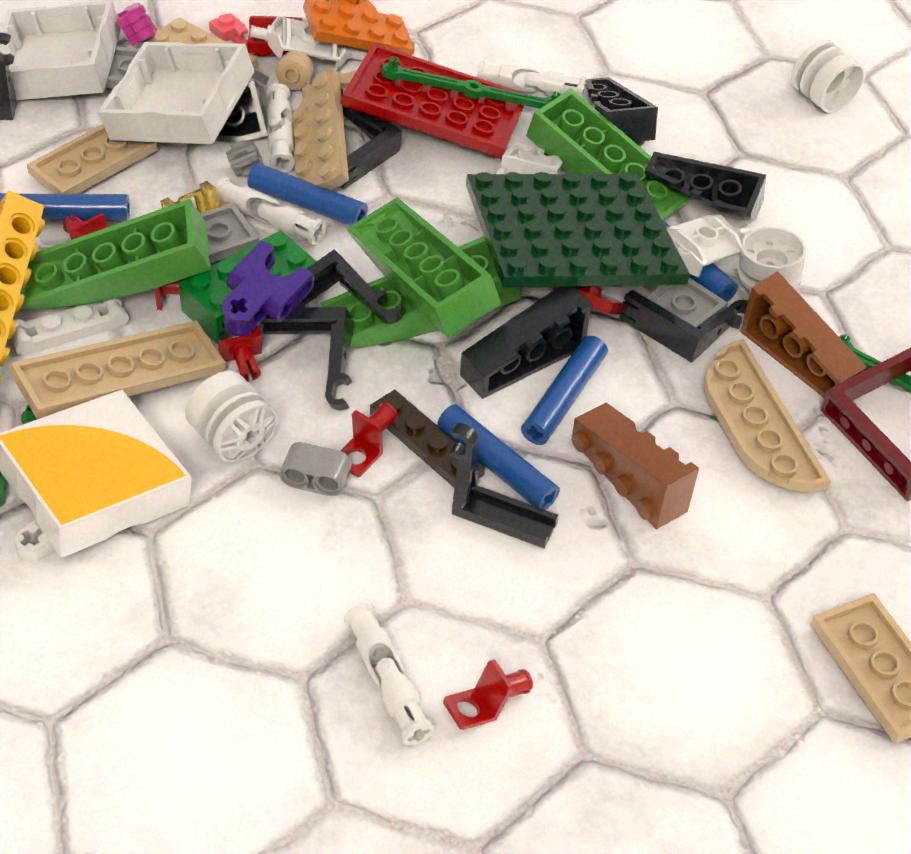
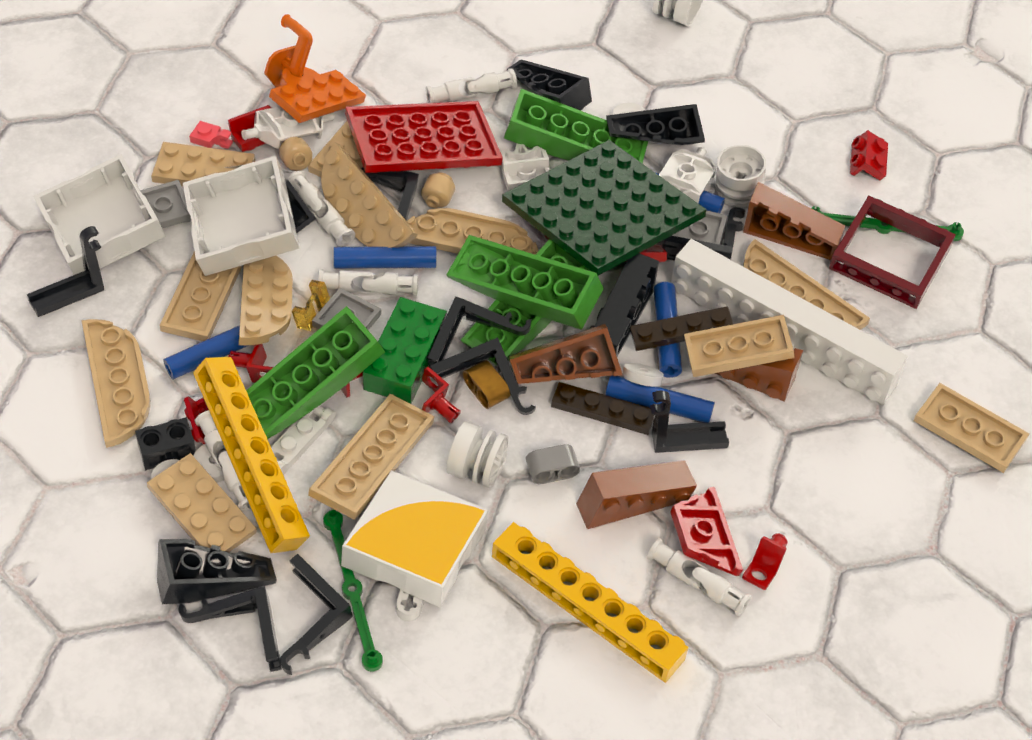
camera: 30 degrees left, 5 degrees up
(136, 23) = (141, 162): dark pink hand -> none
(143, 181) = (265, 300): none -> tan plate
(203, 553) = (660, 662): none -> yellow brick
(243, 157) = (318, 247): light grey gear -> none
(260, 293) = (434, 353): dark purple piece -> none
(310, 357) = (486, 384): none -> pearl gold beam
(368, 436) = (570, 423): red bracket -> none
(384, 539) = (634, 491): none -> dark orange wedge
(414, 156) = (438, 190): none -> tan head
(425, 365) = (568, 358): none -> dark orange wedge
(434, 625) = (705, 532): none -> wing
(444, 215) = (450, 228): none -> tan plate
(470, 88) = (442, 115): green piece -> none
(494, 421) = (642, 374): none -> white piece
(574, 389) = (672, 329): none -> dark brown plate
(622, 431) = (739, 345): none -> tan plate
(720, 441) = (826, 340): none -> white brick

